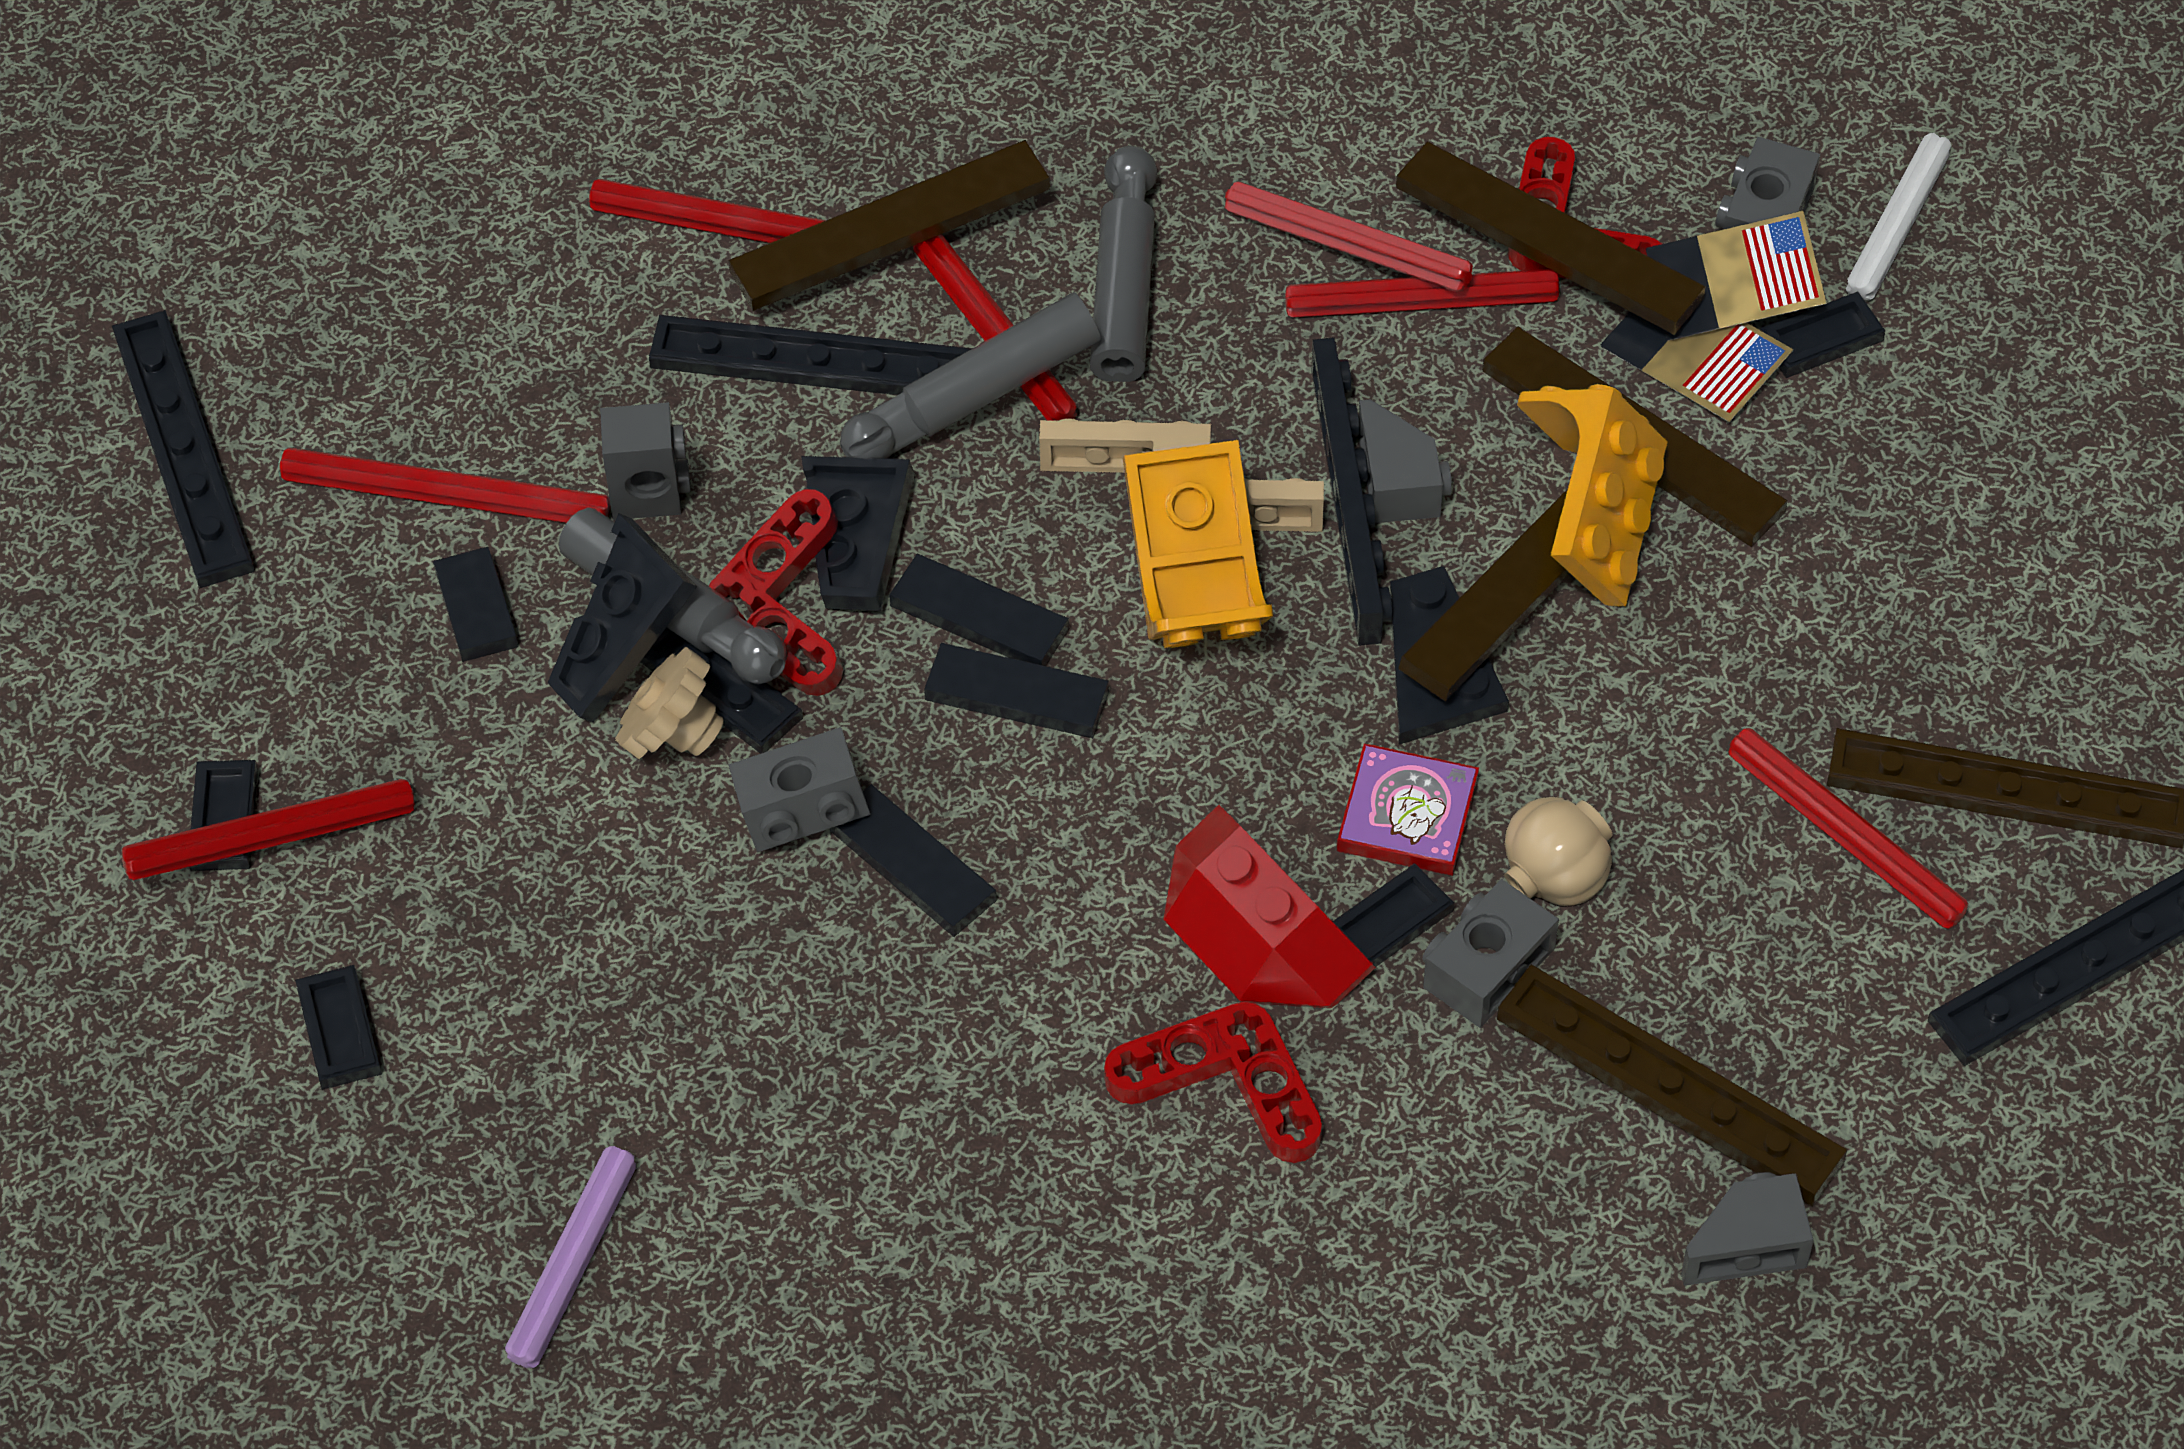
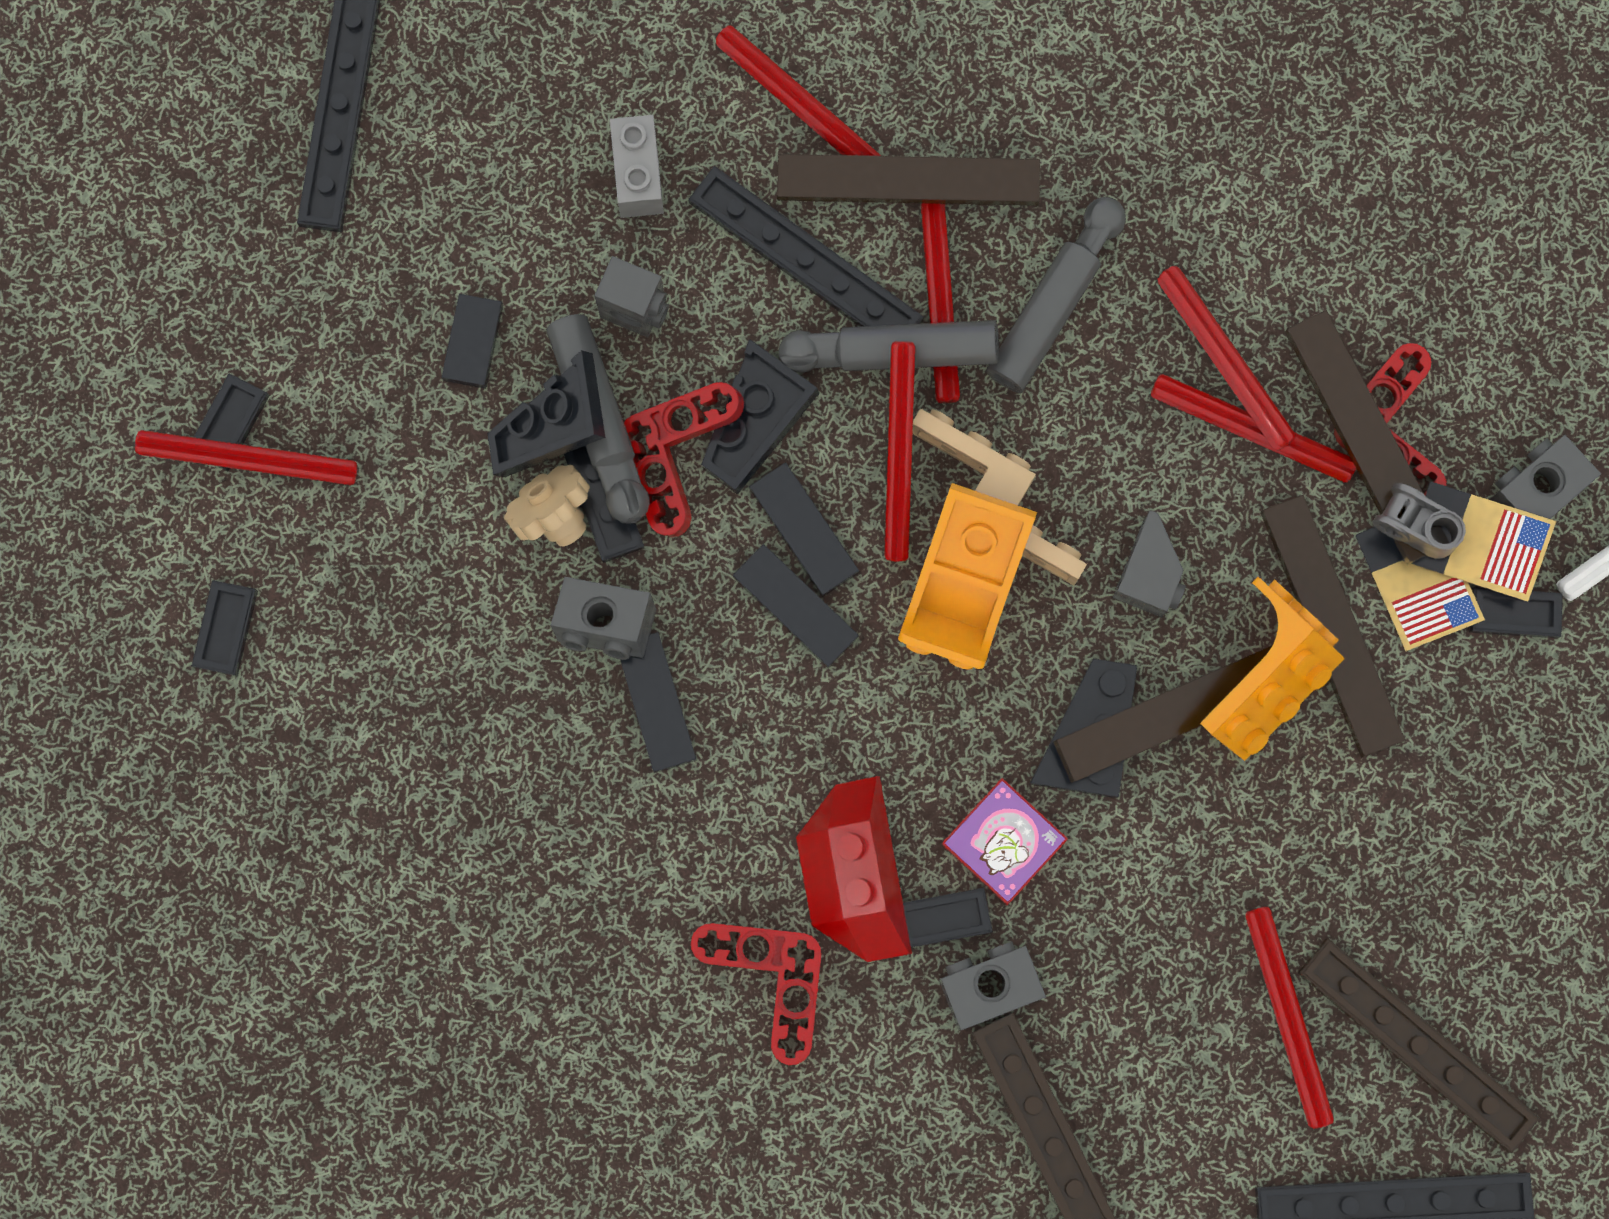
camera: 25 degrees right, 25 degrees up
(438, 486) = (496, 232): red axle -> none
(570, 1257) = (287, 882): lavender axle -> none
(571, 346) = (636, 166): none -> light grey brick
(1043, 472) = (899, 451): none -> red axle
(1353, 511) = (1100, 588): black plate -> none
(1558, 851) = (1081, 935): tan plant -> none
(1666, 272) = (1417, 520): none -> flat silver piece

